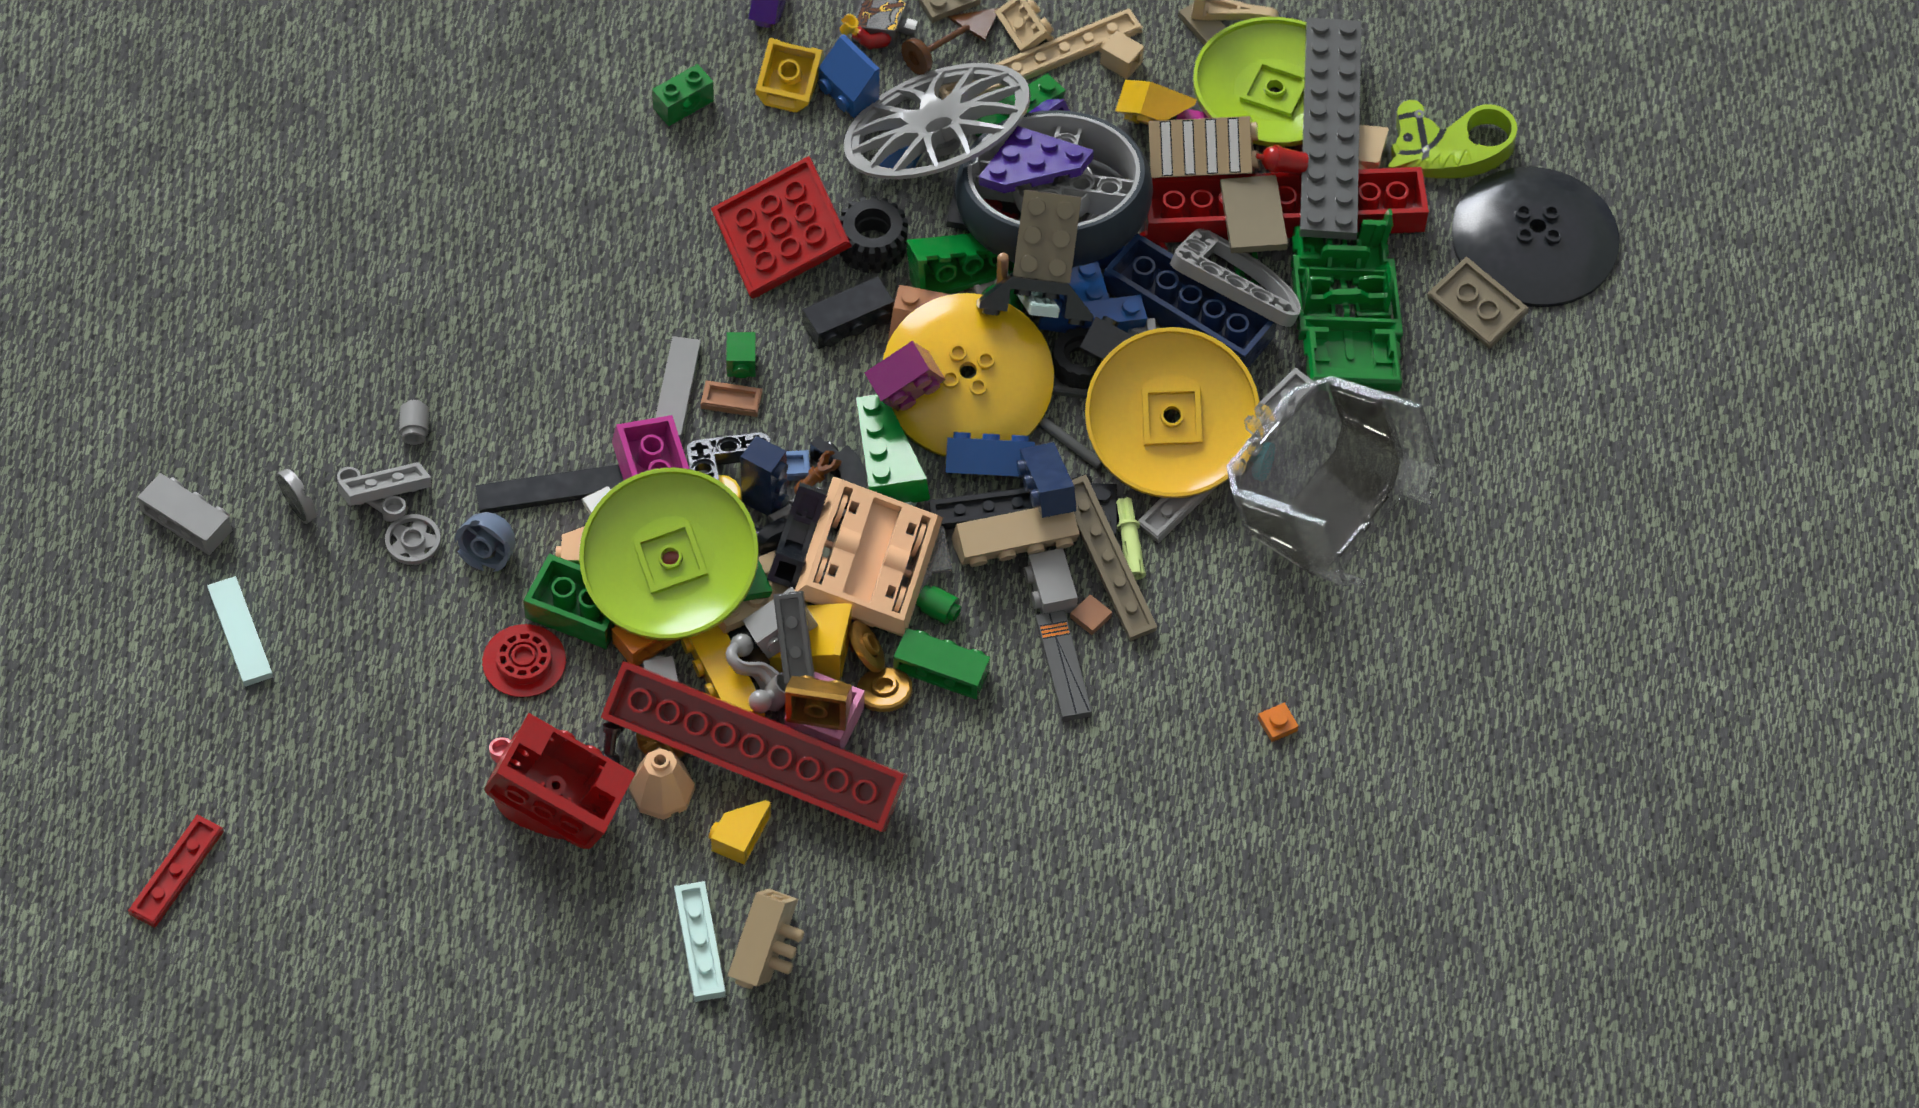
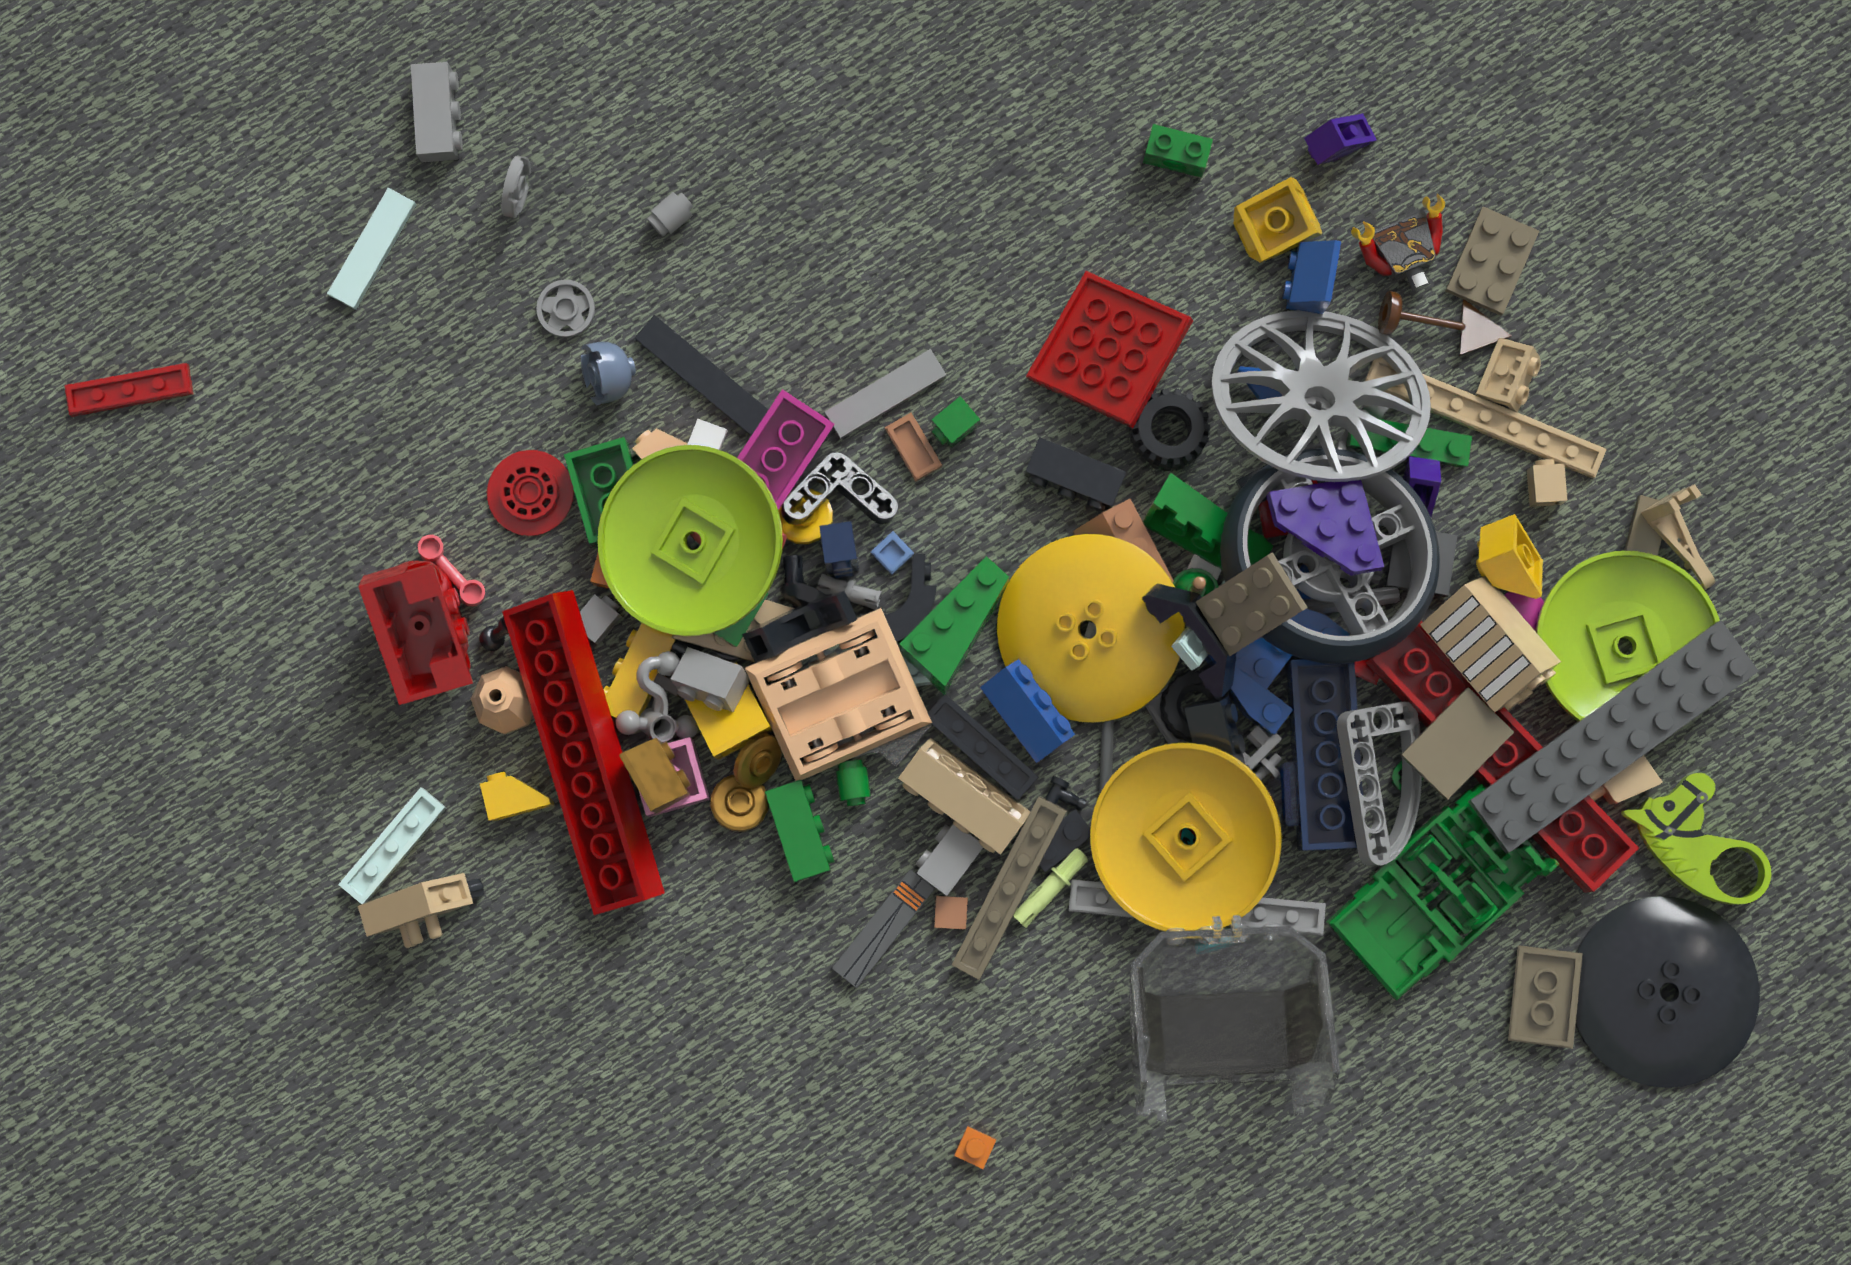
camera: 55 degrees right, 25 degrees up
(384, 484) = (589, 244): light grey plate -> none
(392, 507) = (574, 214): light grey bar -> none
(793, 635) = (695, 707): dark grey tile -> none
(817, 473) = (890, 582): dark orange piece -> none
(905, 376) = (1025, 590): magenta brick -> none
(1046, 480) = (1023, 789): dark blue brick -> none
(1283, 160) = (1533, 728): red piece -> none

